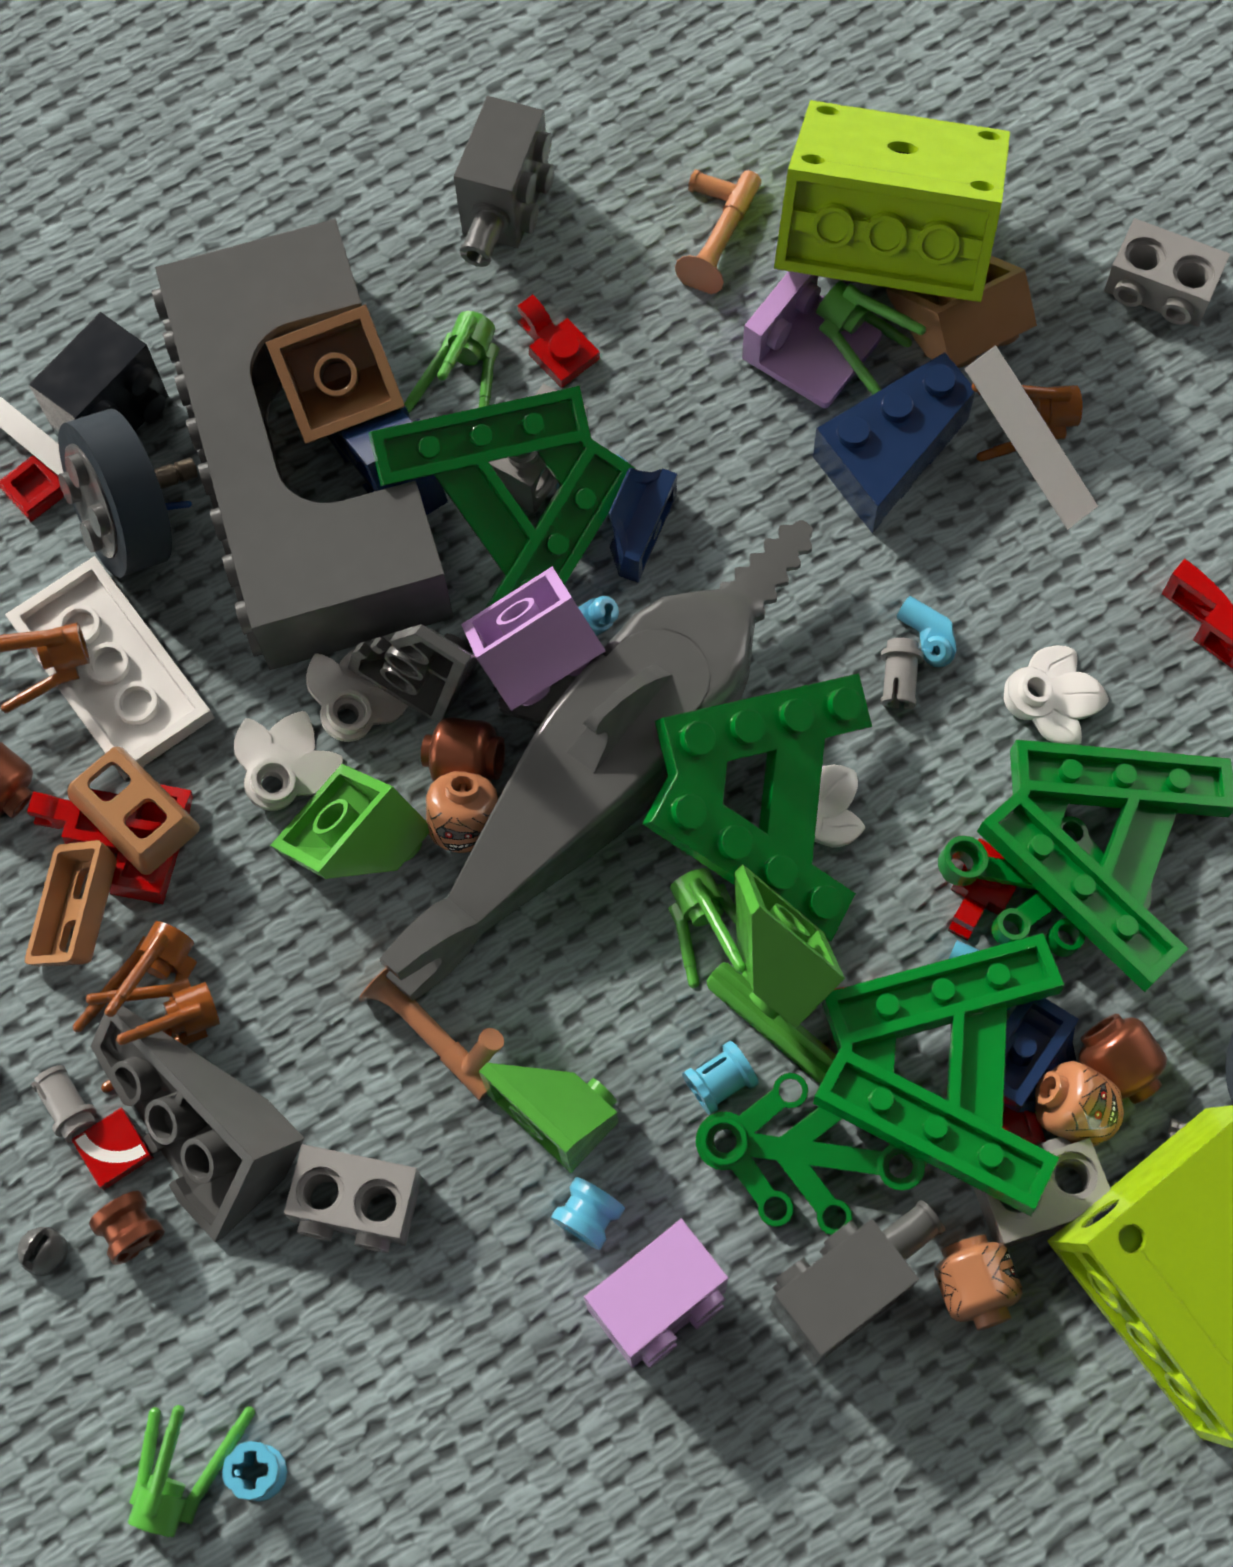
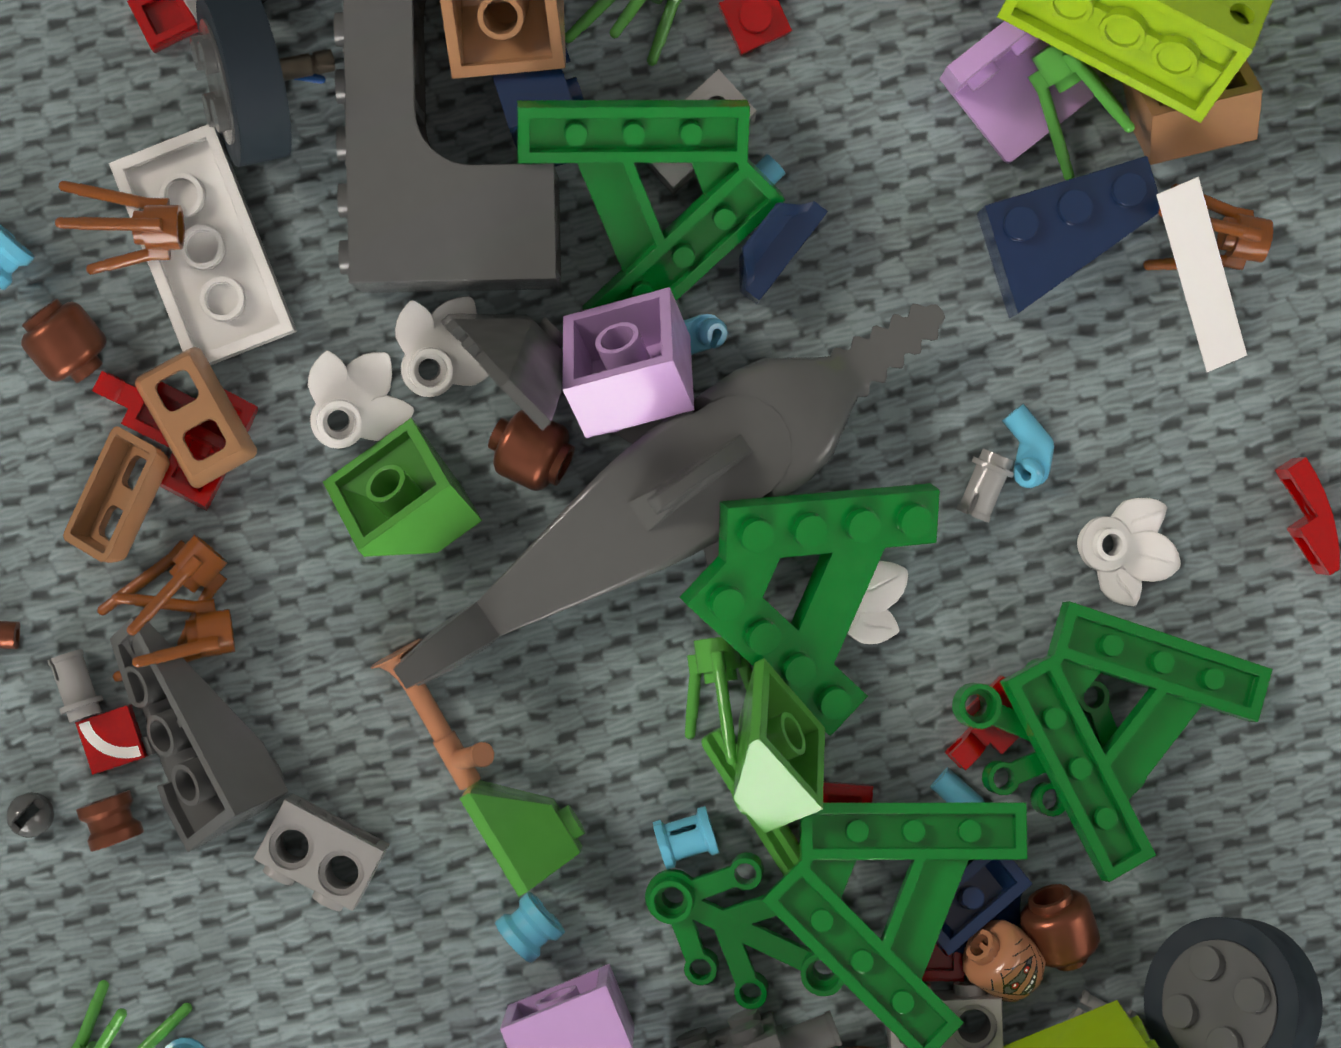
camera: 10 degrees right, 20 degrees up
(459, 811) = (513, 512): nougat head -> none

